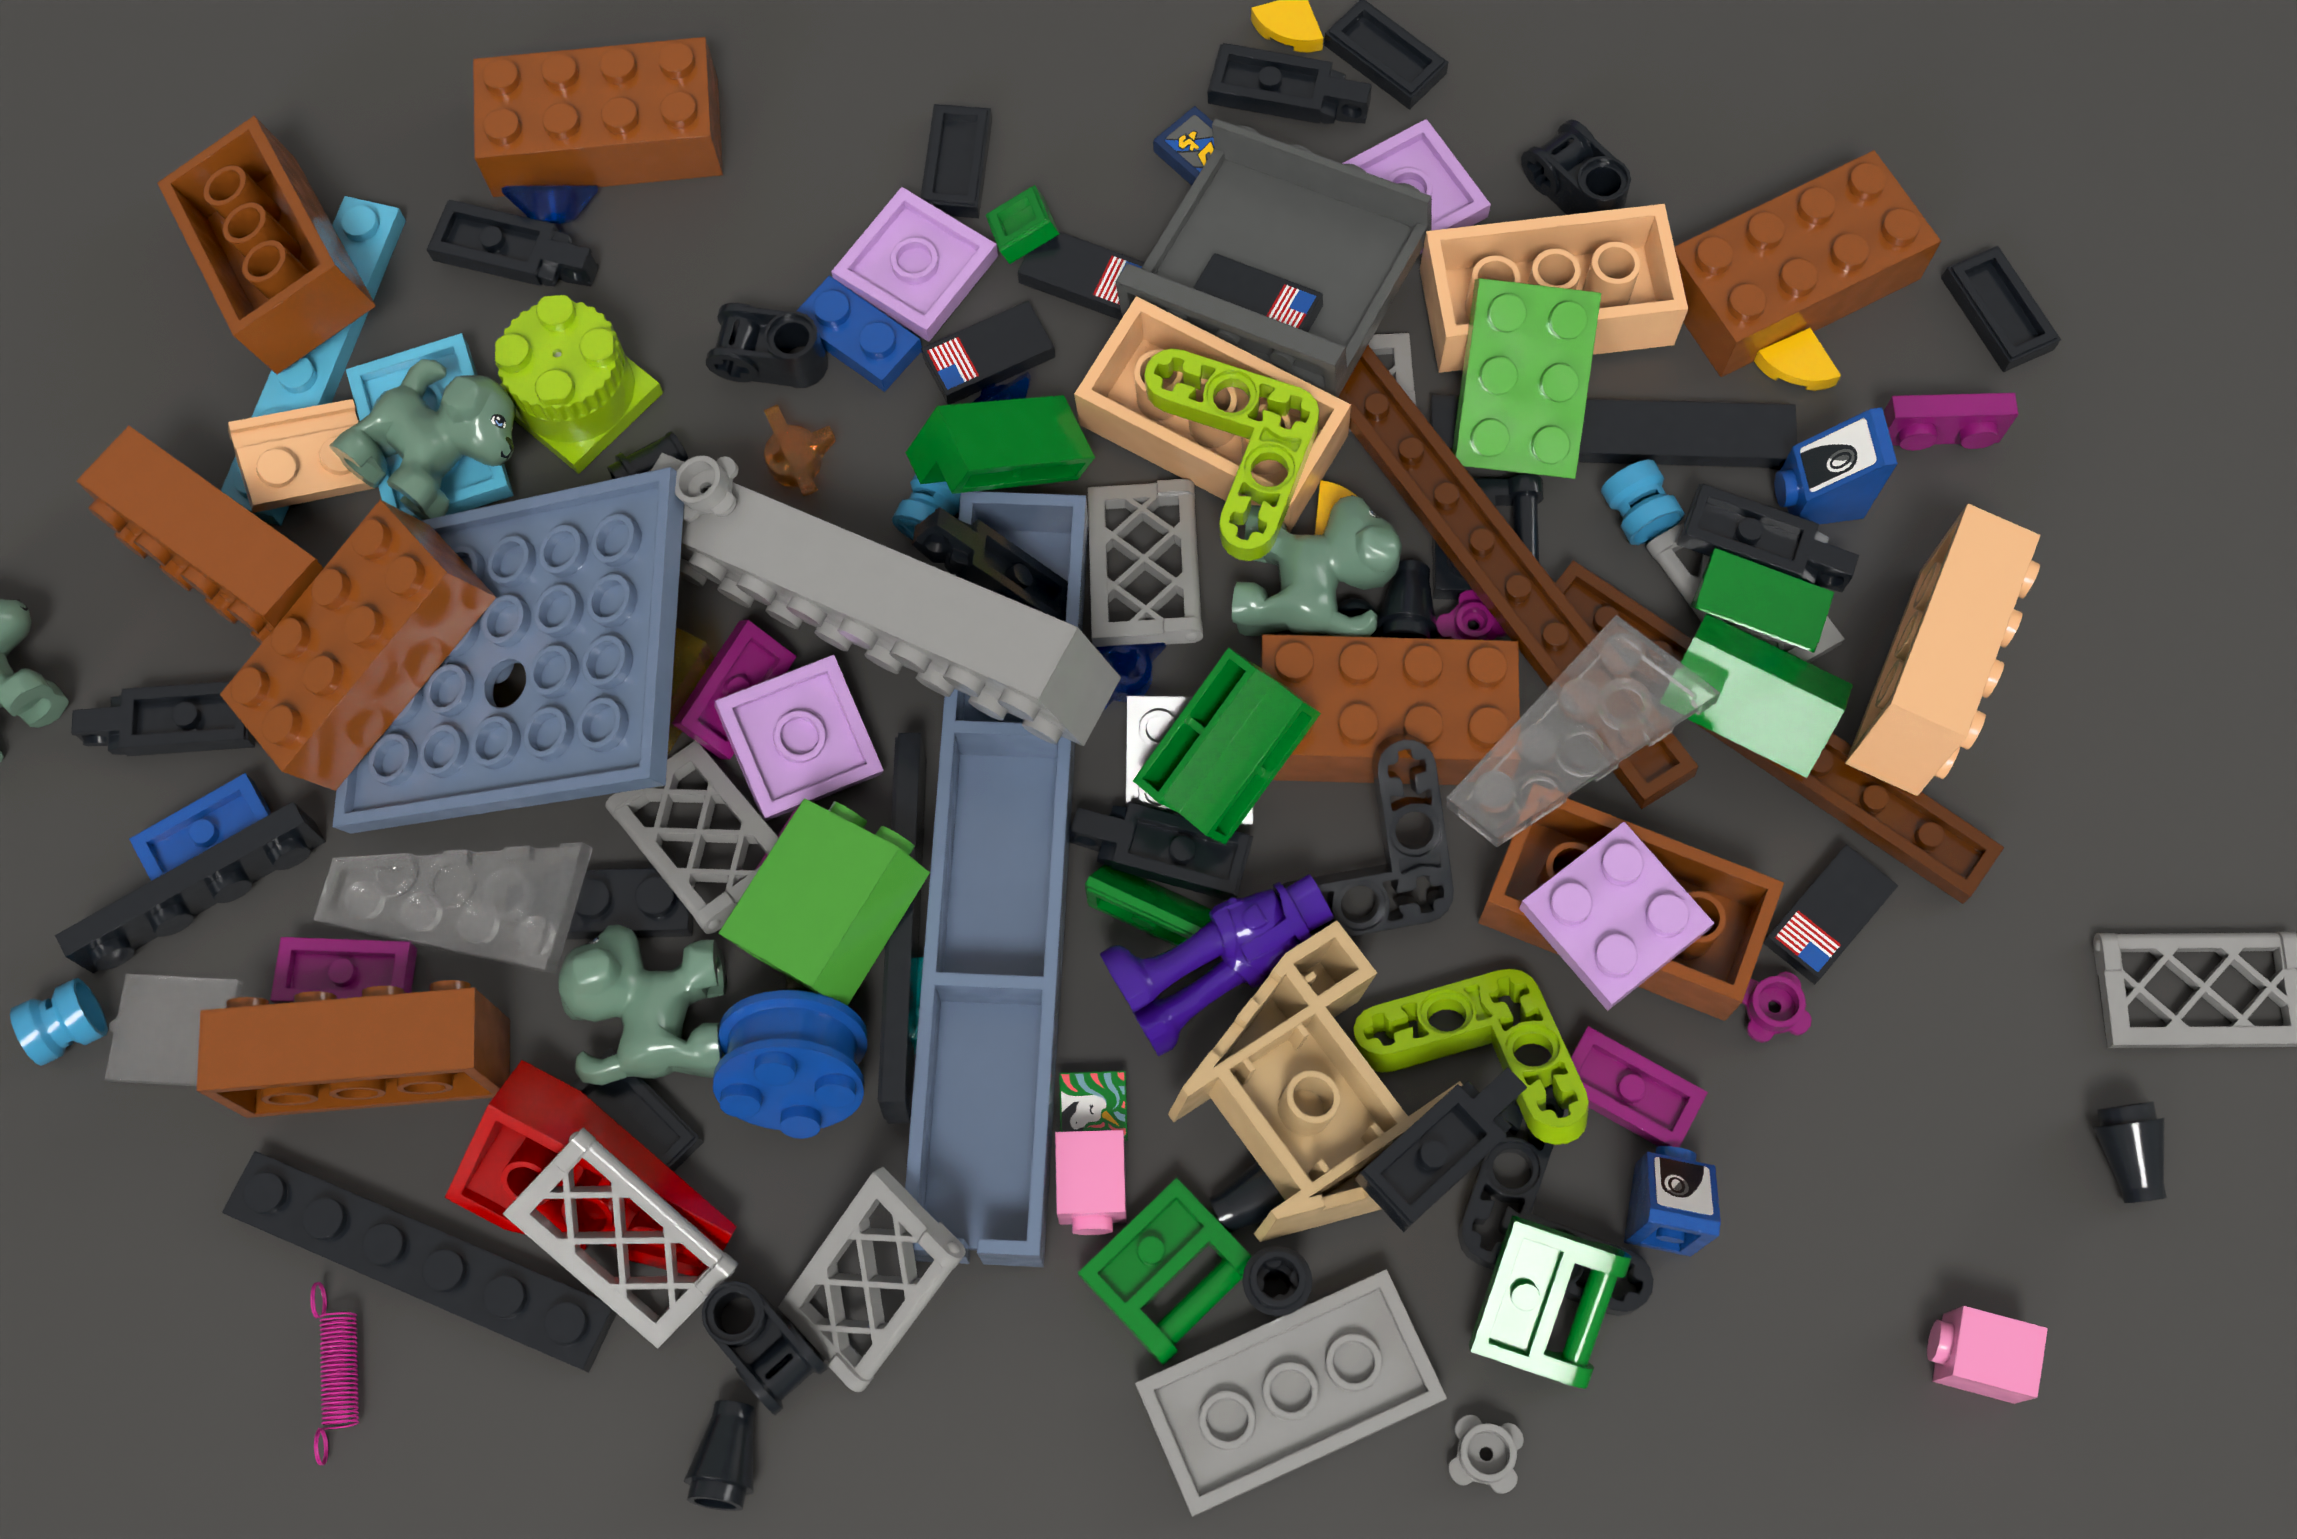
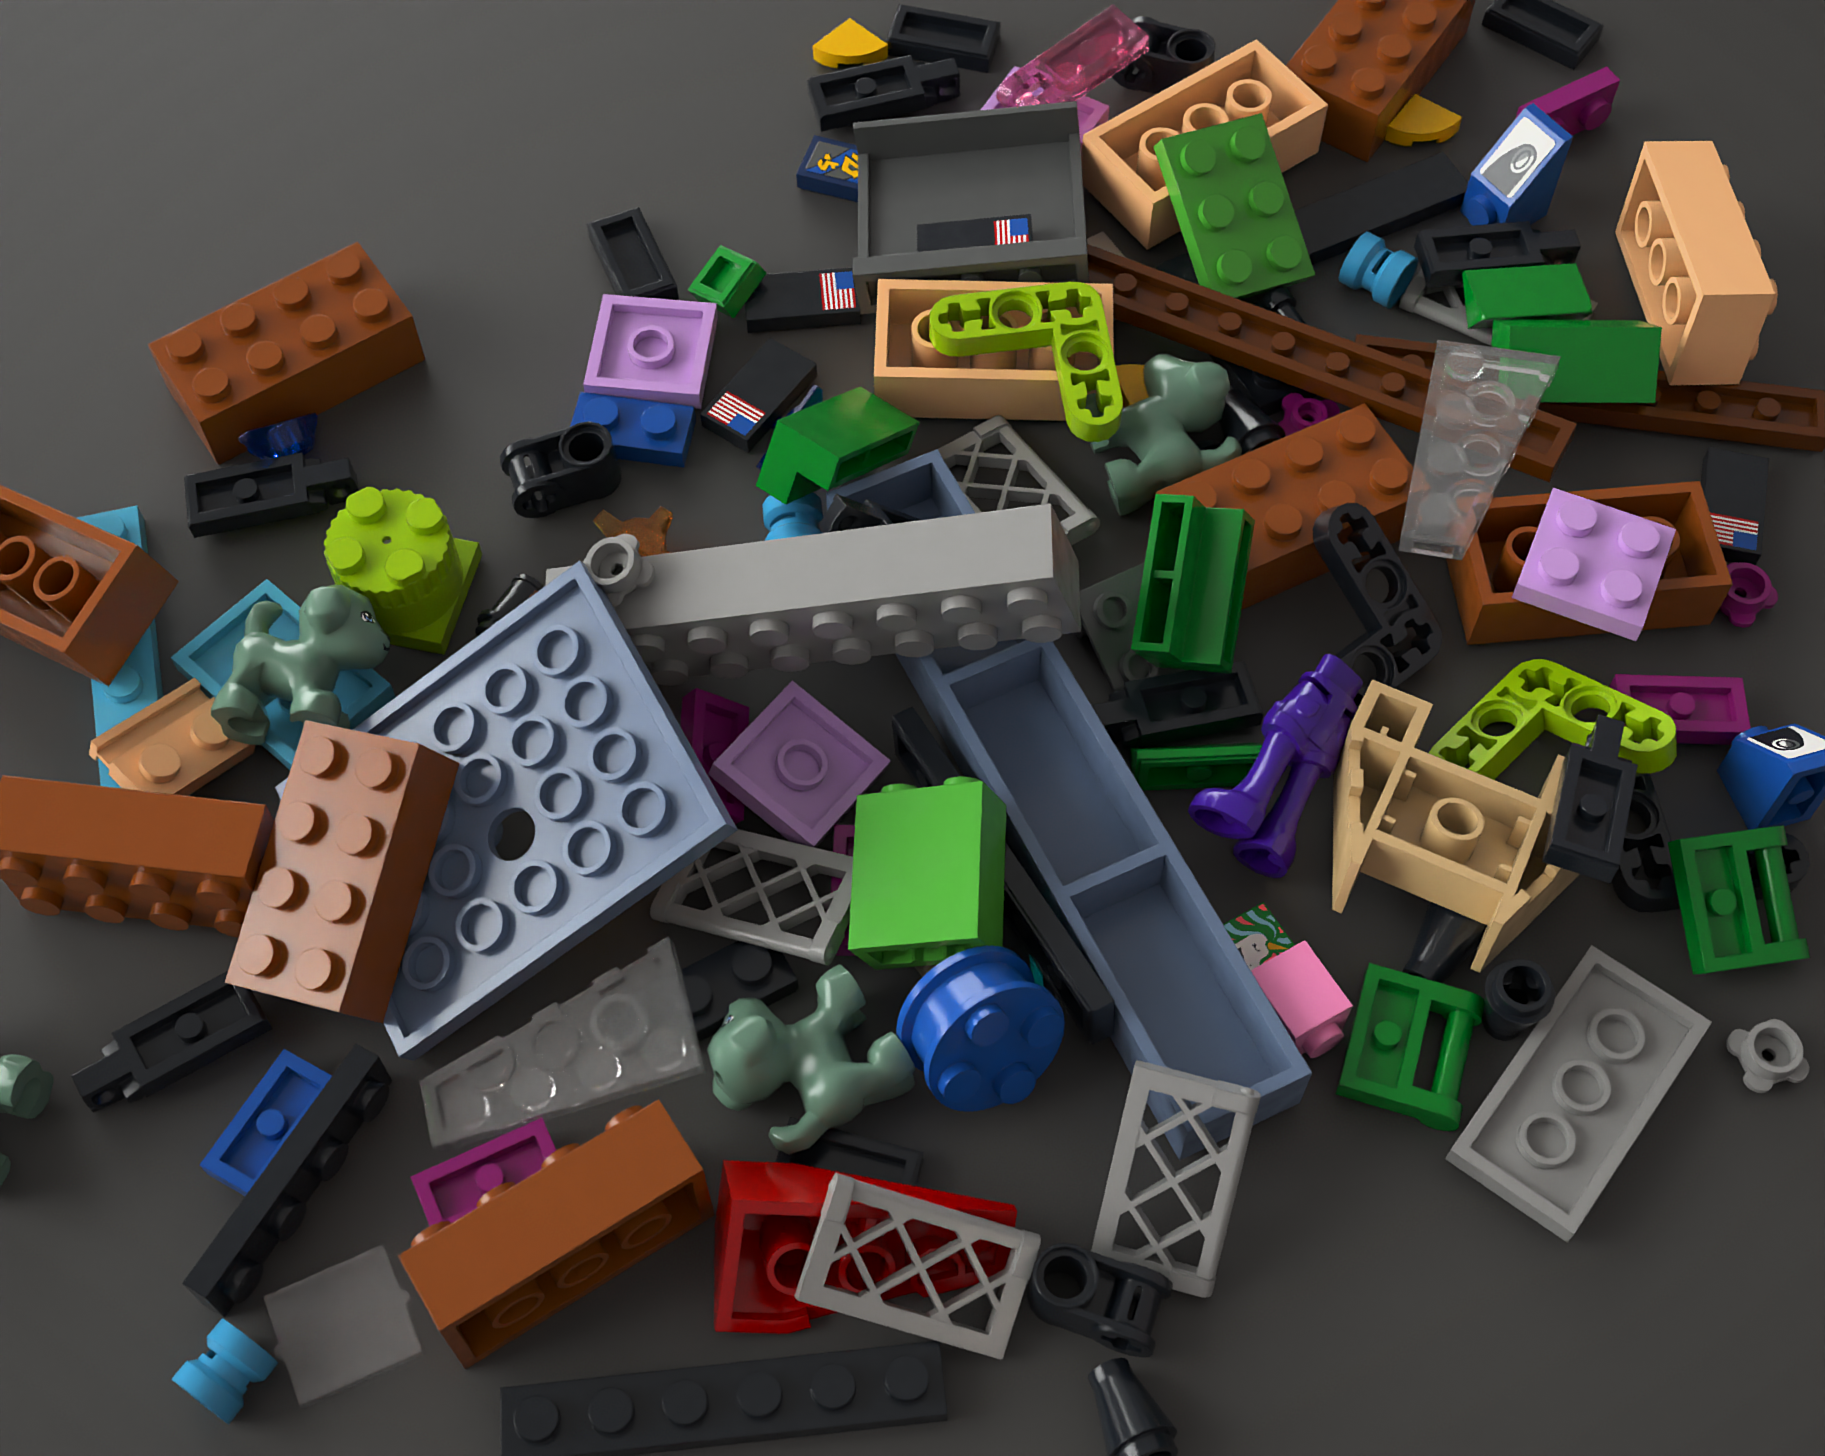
camera: 30 degrees left, 10 degrees down
(1472, 149) = (1077, 62): none -> clear pink plate

